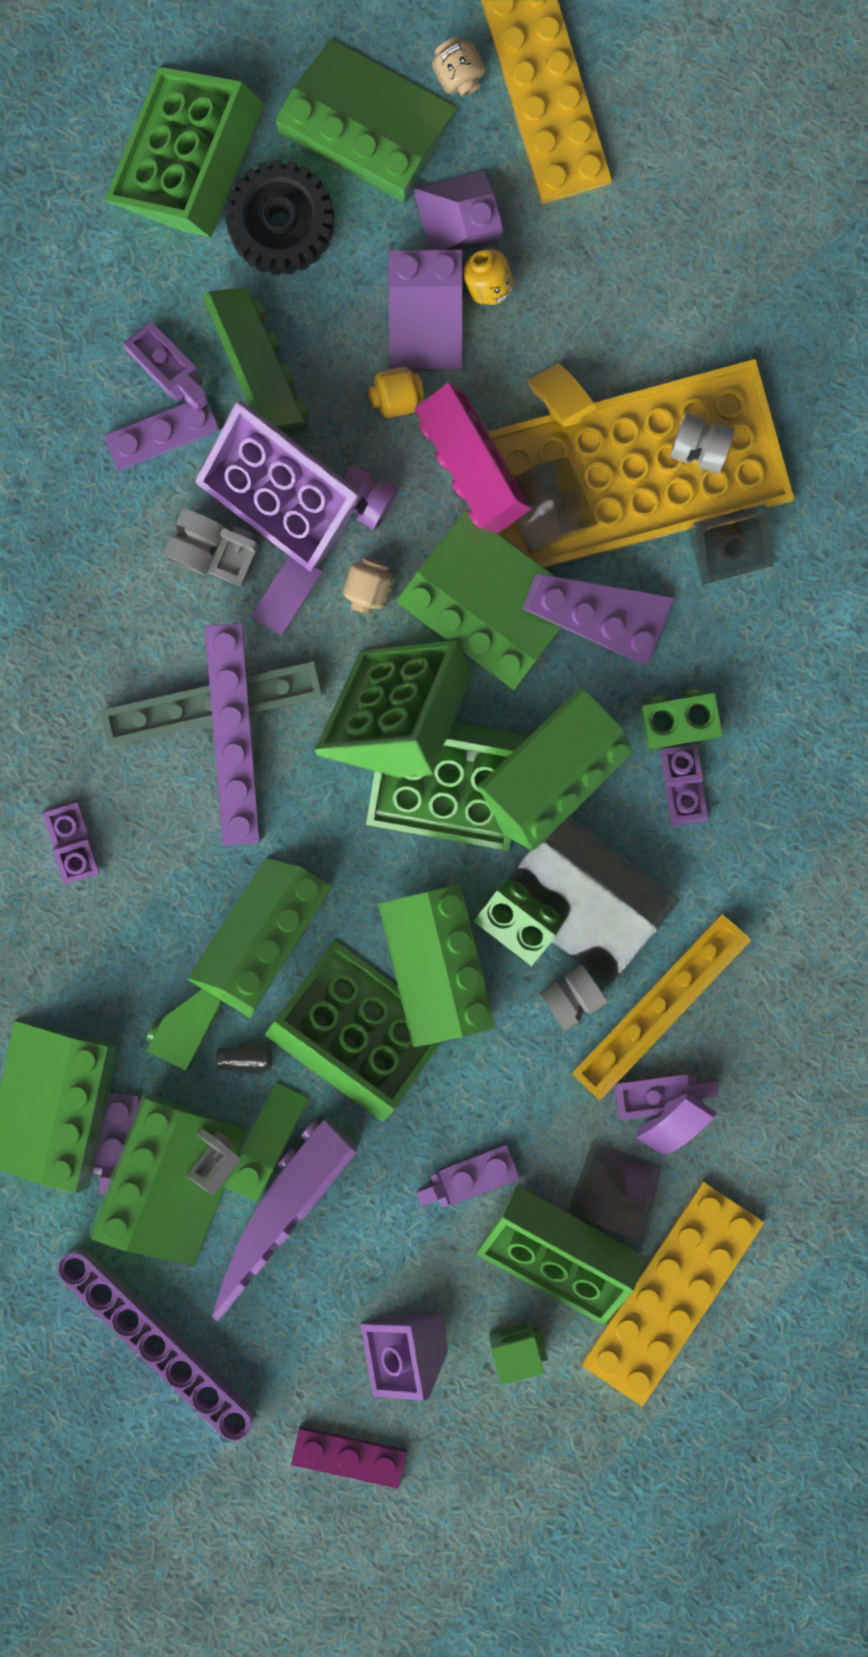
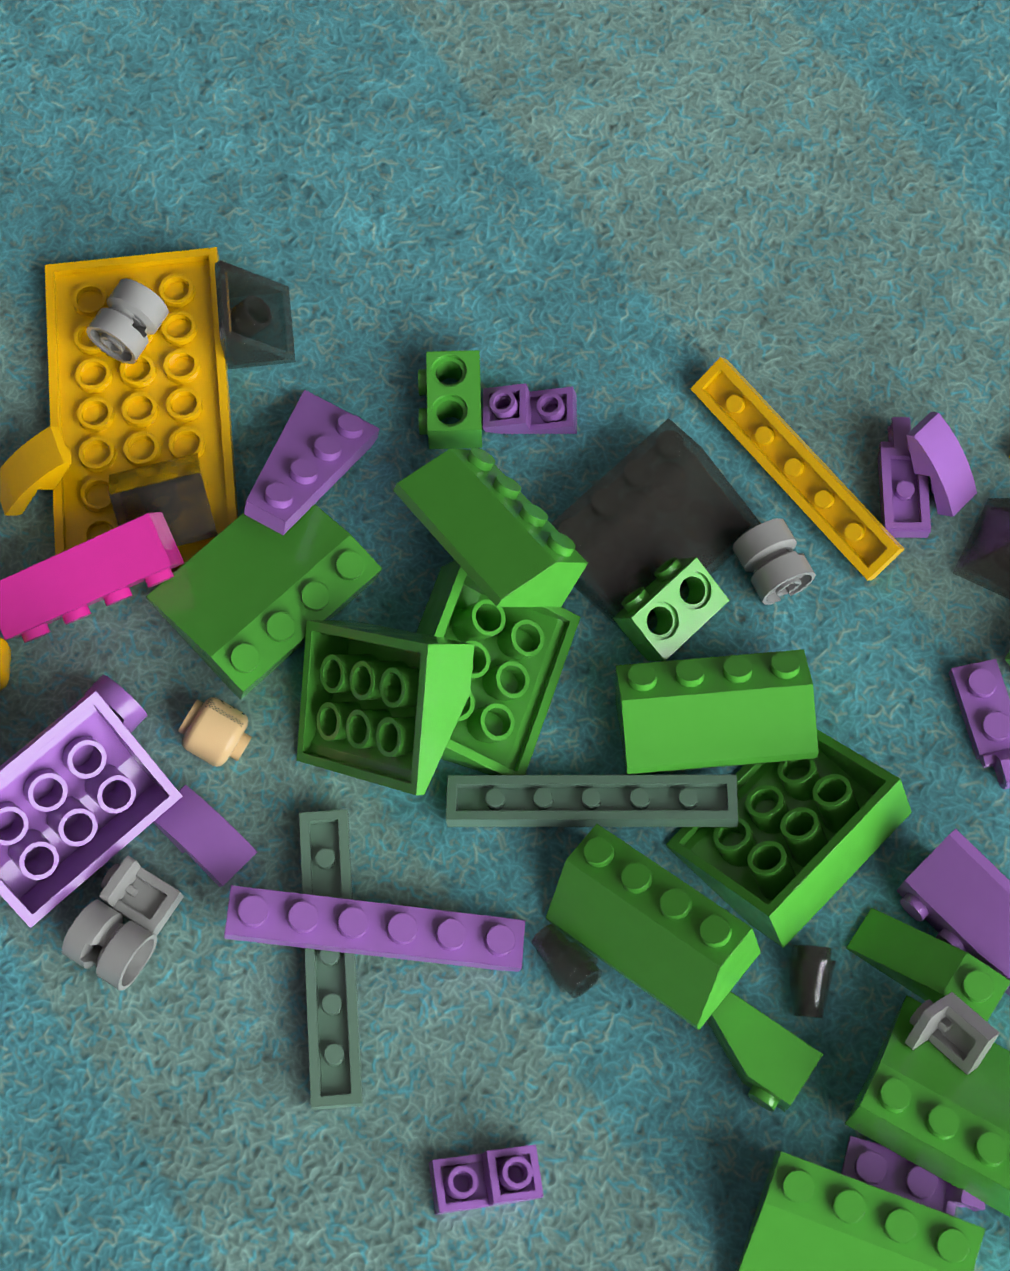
camera: 85 degrees left, 20 degrees down
(233, 877) = (567, 962): none -> clear smoke cone
(355, 879) = (592, 801): none -> sand green plate

